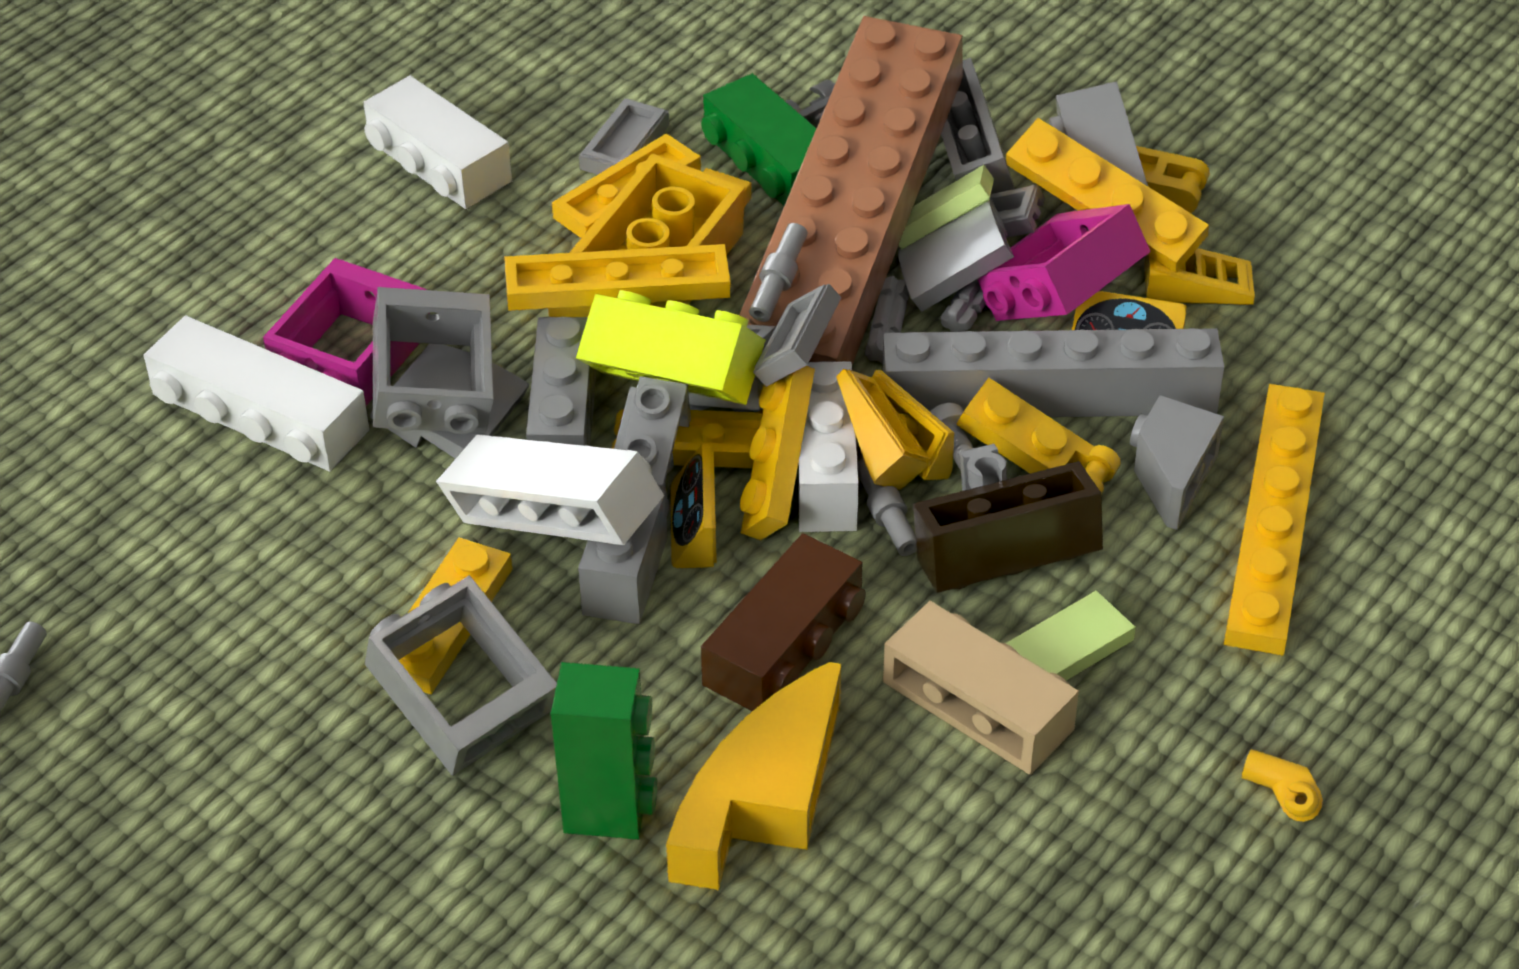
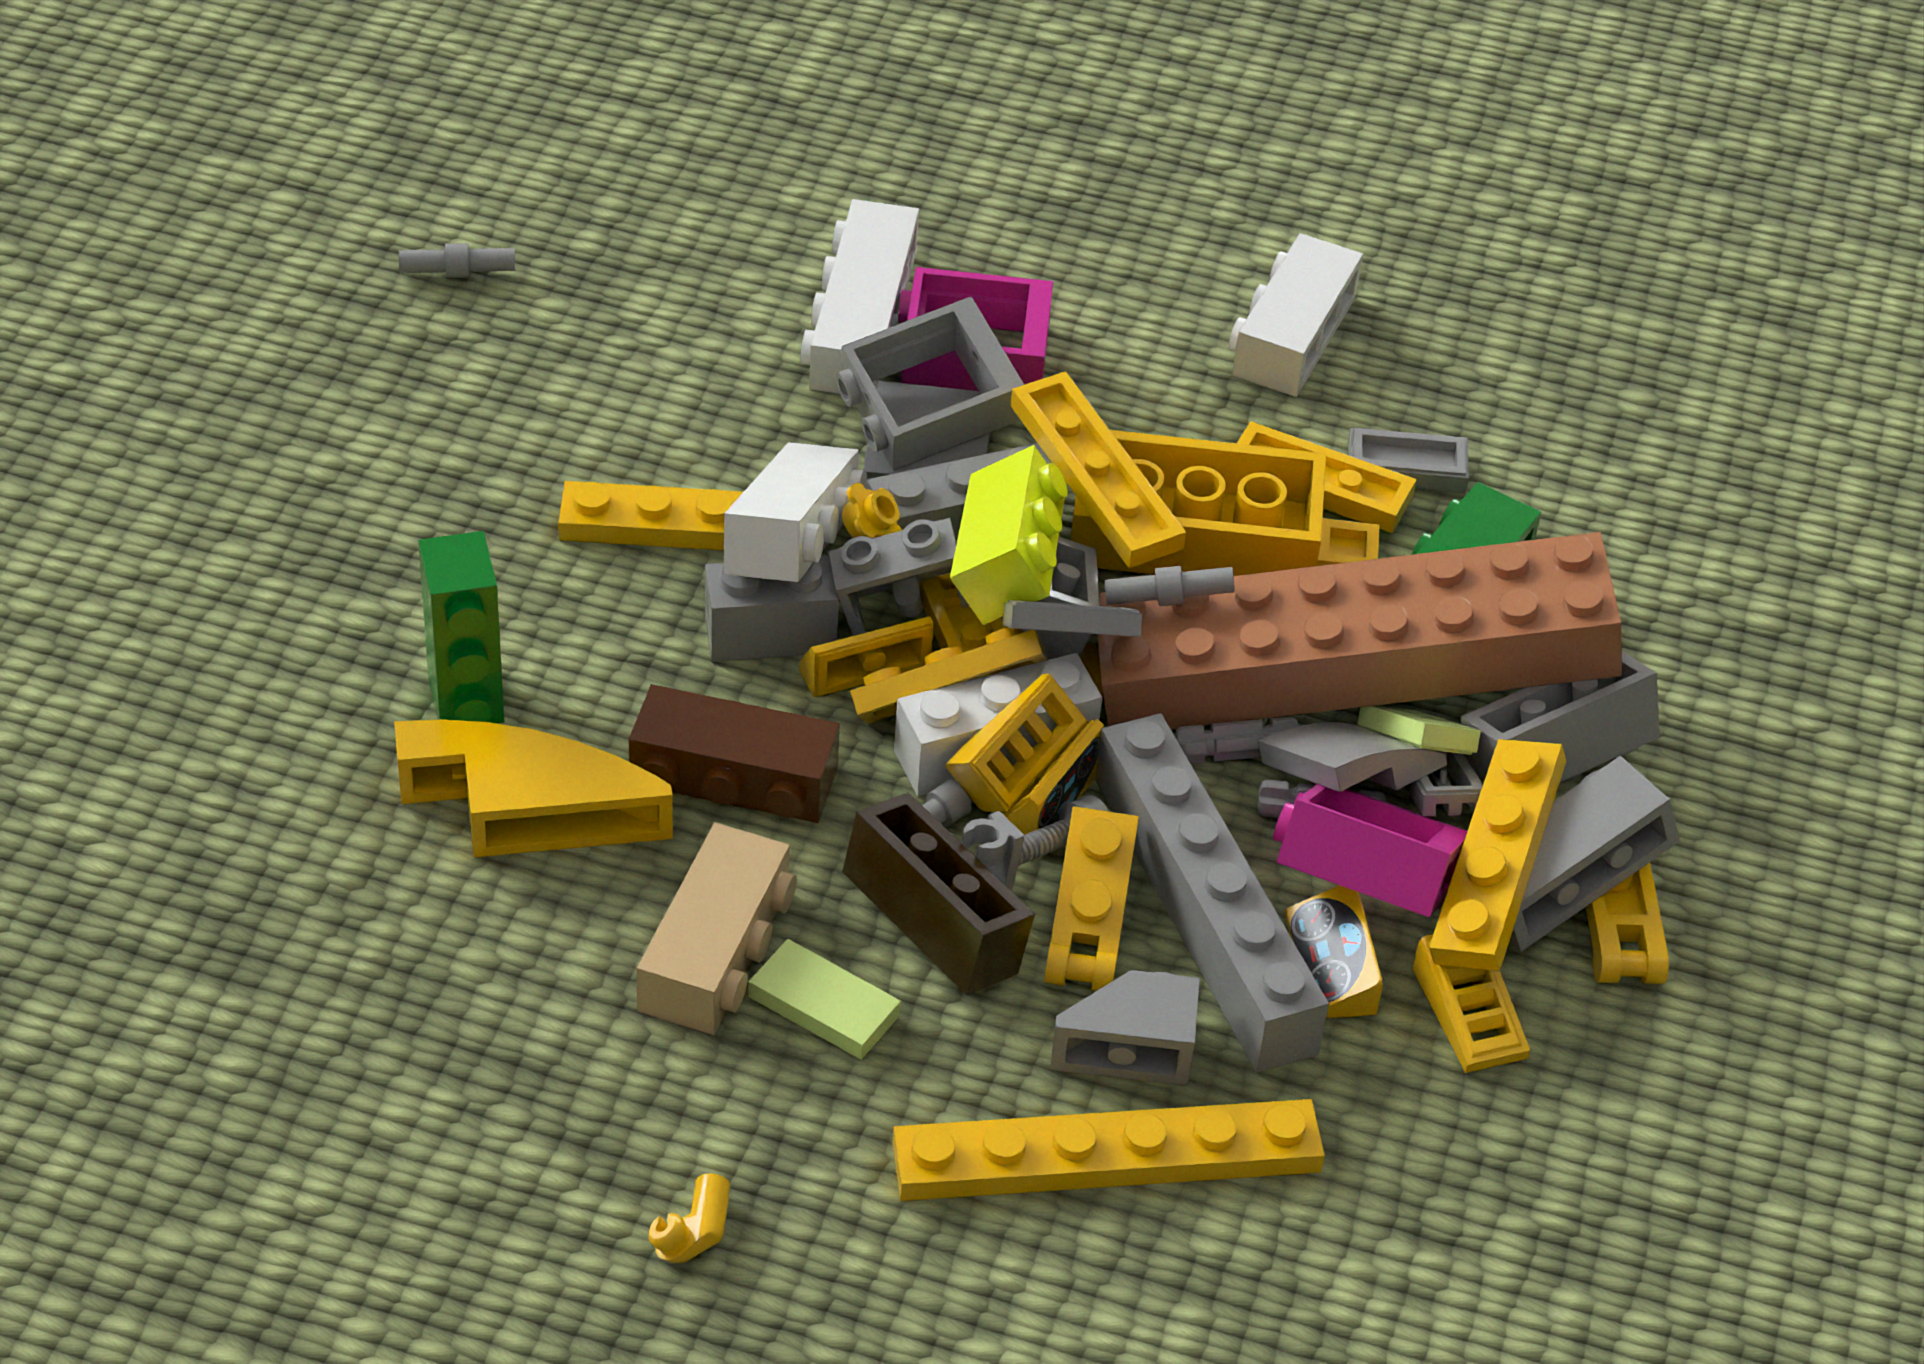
camera: 65 degrees right, 0 degrees up
(493, 723) = (563, 466): light grey window -> none
(586, 431) = (870, 512): none -> yellow plate

